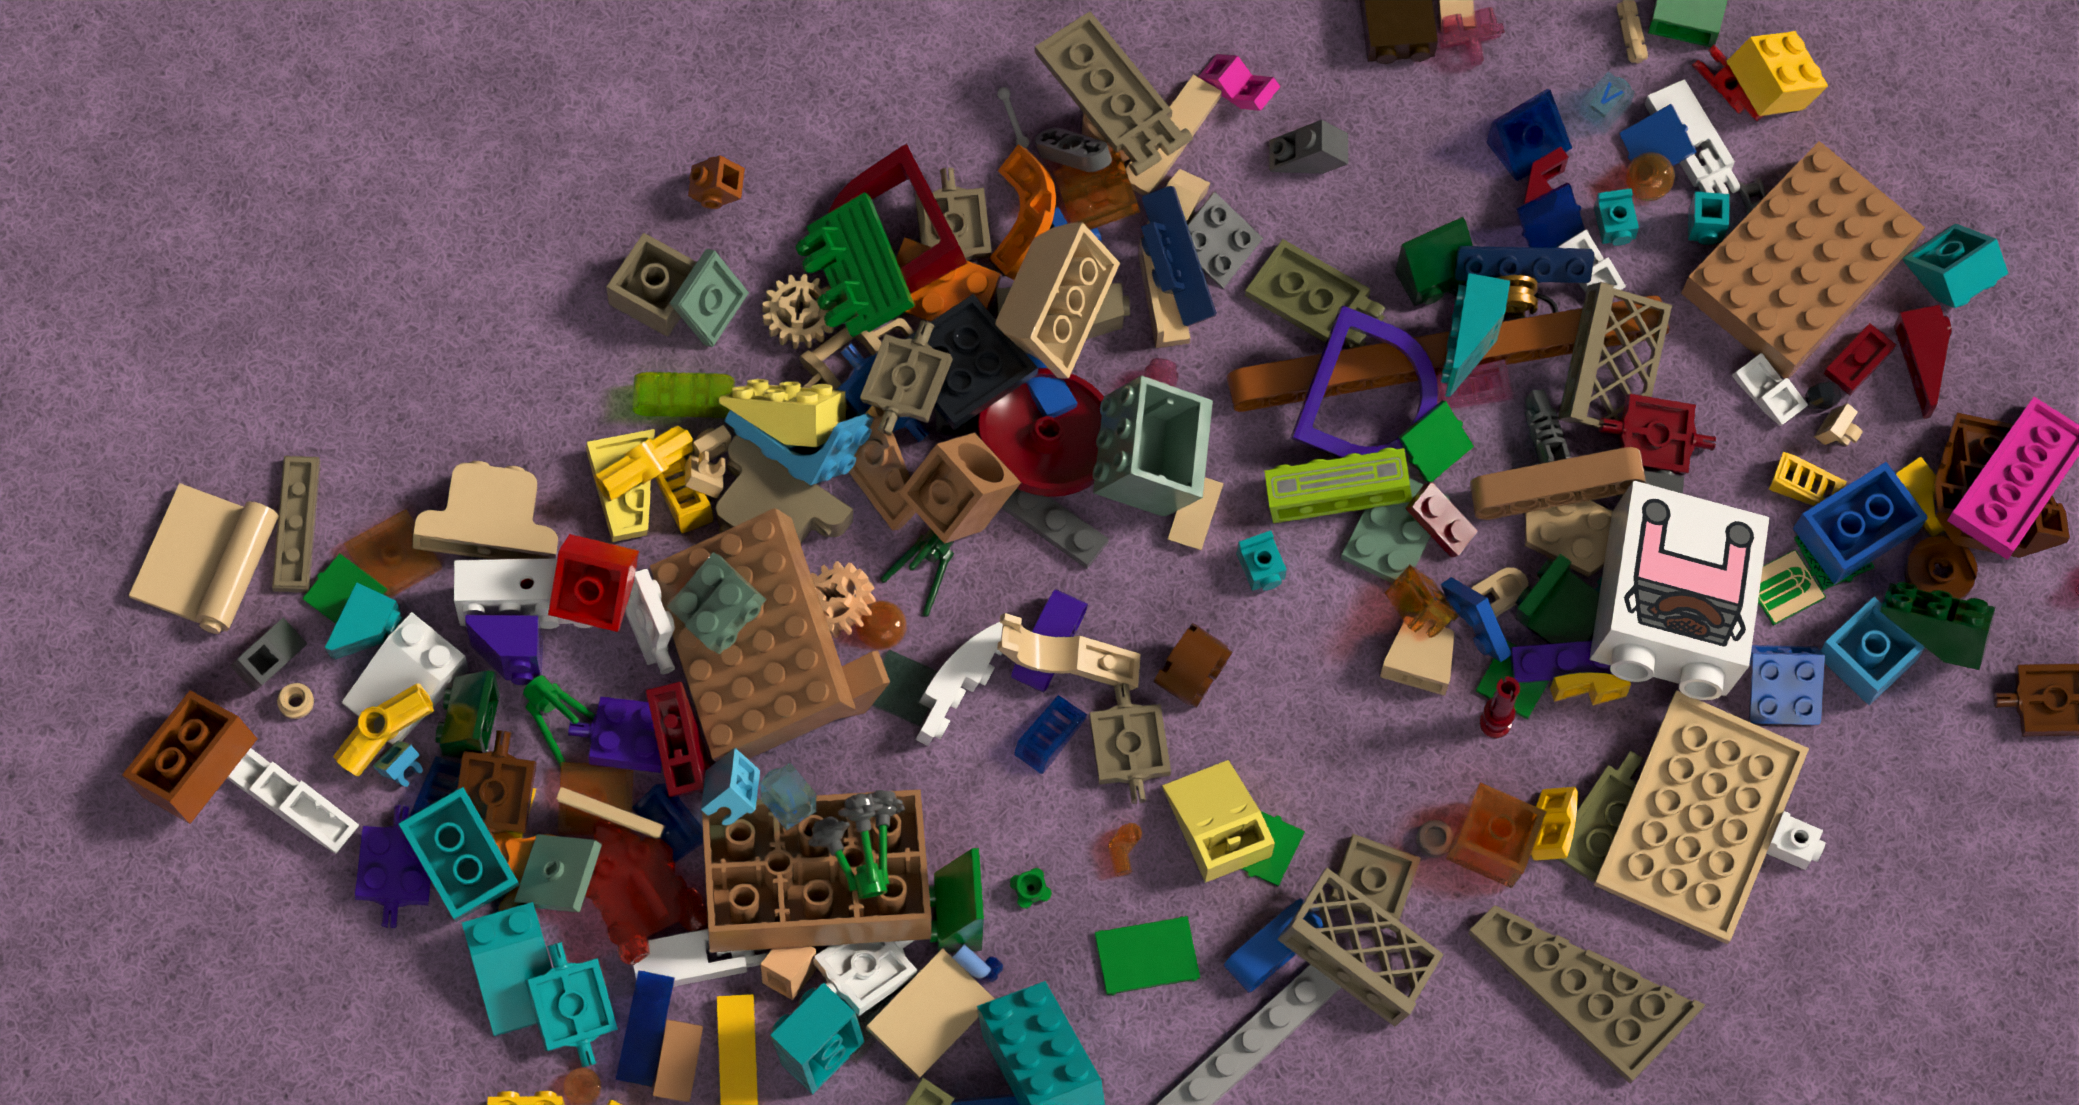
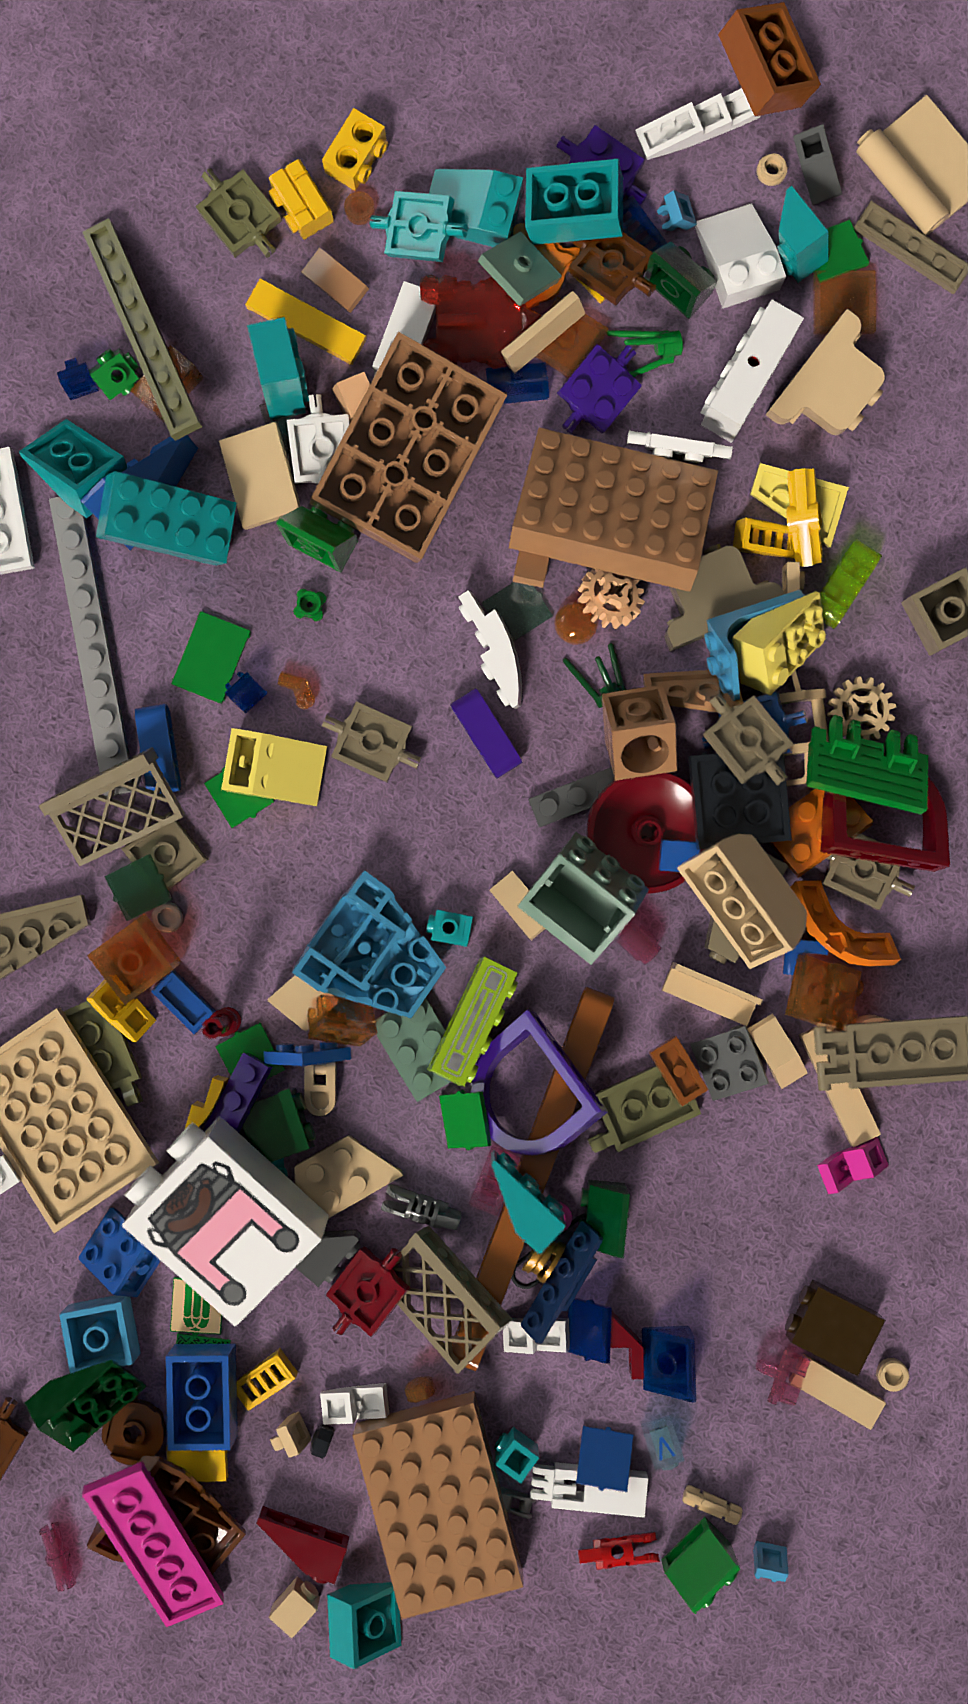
camera: 130 degrees right, 20 degrees up
(398, 714) = (712, 206): yellow piece -> none
(508, 644) = (715, 332): dark purple slope -> none
(592, 582) = (722, 402): red slope -> none
(645, 1028) = (372, 270): clear blue plate -> none
(678, 740) = (563, 408): dark red slope -> none
(704, 475) = (768, 557): tan tile -> none
(709, 297) = (911, 644): sand green plate -> none
(716, 604) = (649, 487): sand green plate -> none
(731, 784) = (504, 422): medium azure hinge -> none
(788, 795) = (470, 452): clear light blue brick -> none
(828, 832) = (409, 477): plant -> none
(976, 967) = (268, 533): medium blue arm -> none
(1004, 94) = (903, 967): light grey hinge -> none
(1036, 751) = (402, 684): clear blue slope -> none
(1068, 655) = (460, 732): tan piece -> none
(1073, 149) = (878, 997): dark grey beam -> none
(1160, 893) = (245, 692): none -> clear blue tile
(1175, 256) = (731, 1015): dark blue bracket -> none
(1192, 664) = (397, 821): reddish brown brick -> none
(1257, 277) = (678, 1070): none -> dark orange plate
(1309, 149) = (762, 1182): dark grey slope -> none
(1336, 618) = (371, 952): none -> dark azure wedge
(1424, 881) = (138, 887): none -> clear green piece
(1441, 519) = (400, 1082): plate -> none
(1508, 765) = (183, 1001): none -> blue tile
(1556, 483) = (370, 1188): medium nougat beam -> none
(1607, 208) = (573, 1377): teal brick -> none
(1650, 176) = (581, 1433): clear orange piece -> none
(1713, 338) = (419, 1389): none -> clear orange tile
(1777, 73) = (602, 1595): yellow brick -> none
(1860, 359) = (335, 1490): dark red plate -> none
(1988, 331) = (295, 1606): none -> tan brick

